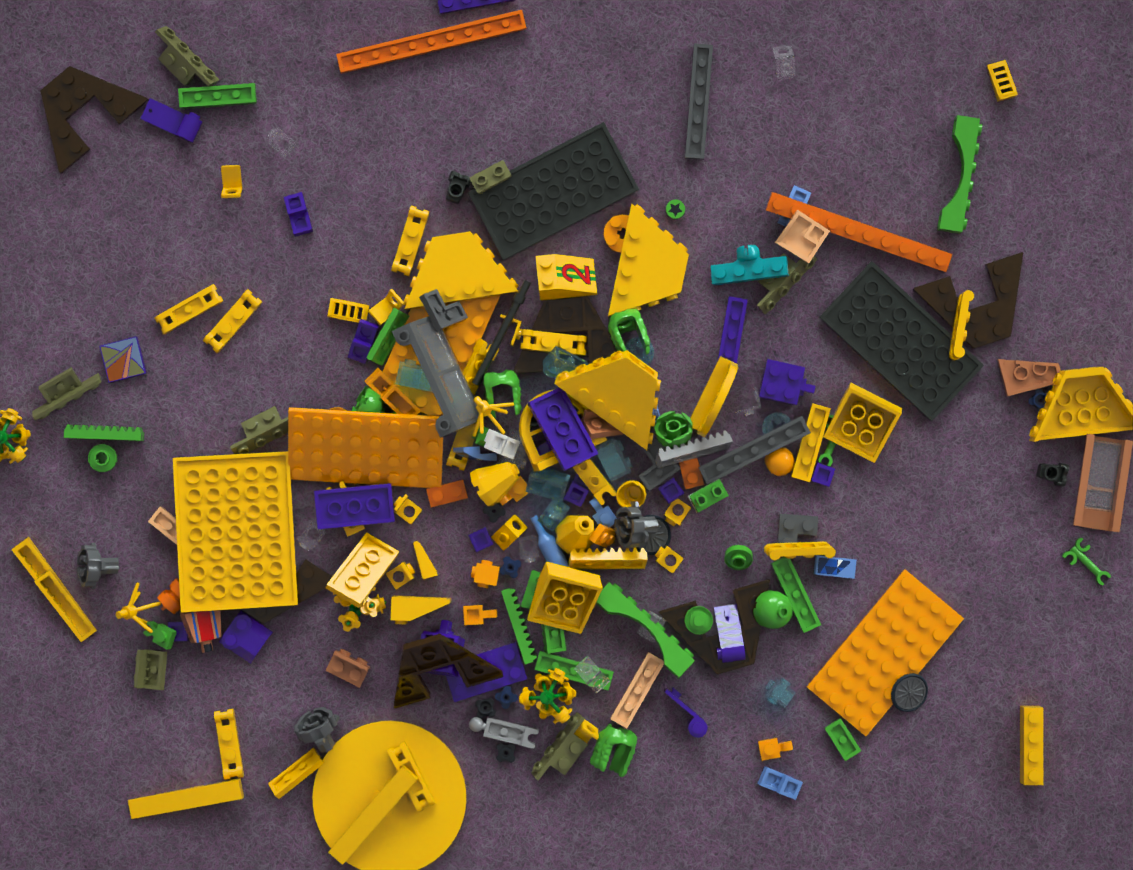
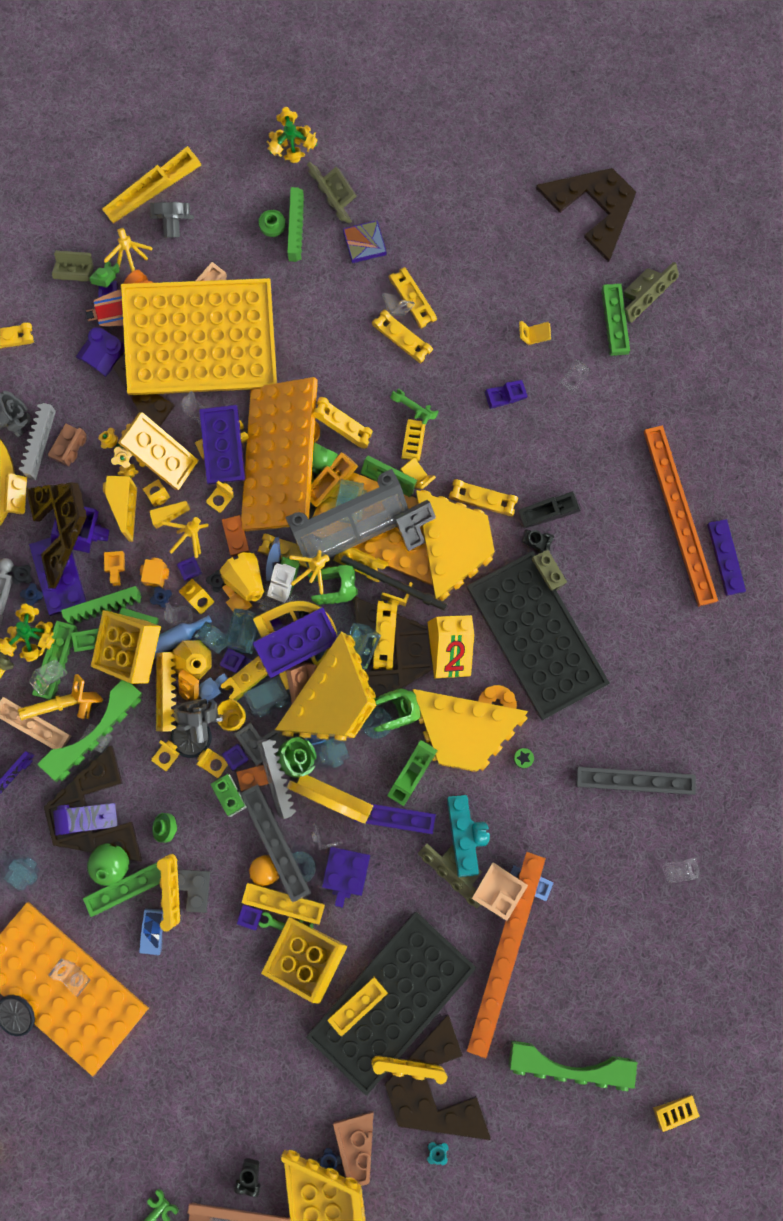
camera: 85 degrees right, 10 degrees down
(171, 120) = (590, 280): dark purple door -> none
(198, 329) = (394, 306): none -> clear bracket
(261, 430) = (296, 359): olive bracket -> none
(320, 300) = (425, 414): none -> bright green bar
(333, 383) = (342, 423): none -> yellow plate
(348, 697) = (38, 440): none -> light grey gear
(363, 341) = (388, 455): dark purple slope -> none
(401, 718) = (15, 494): none -> yellow plate
(424, 173) = (550, 509): none -> pearl dark grey slope
(445, 536) = (189, 530): none -> yellow plant
(612, 638) = (85, 698): none -> light orange bracket
(619, 672) = (47, 706): none -> yellow pin
(669, 394) = (333, 753): none -> clear light blue brick
(689, 318) = (412, 773): none -> bright green arch
(698, 620) = (98, 785): bright green plate -> none
(875, 639) = (72, 977): none -> clear bracket
(905, 372) = (357, 1006): none -> yellow plate
(1029, 301) = (437, 1159): none -> teal plate

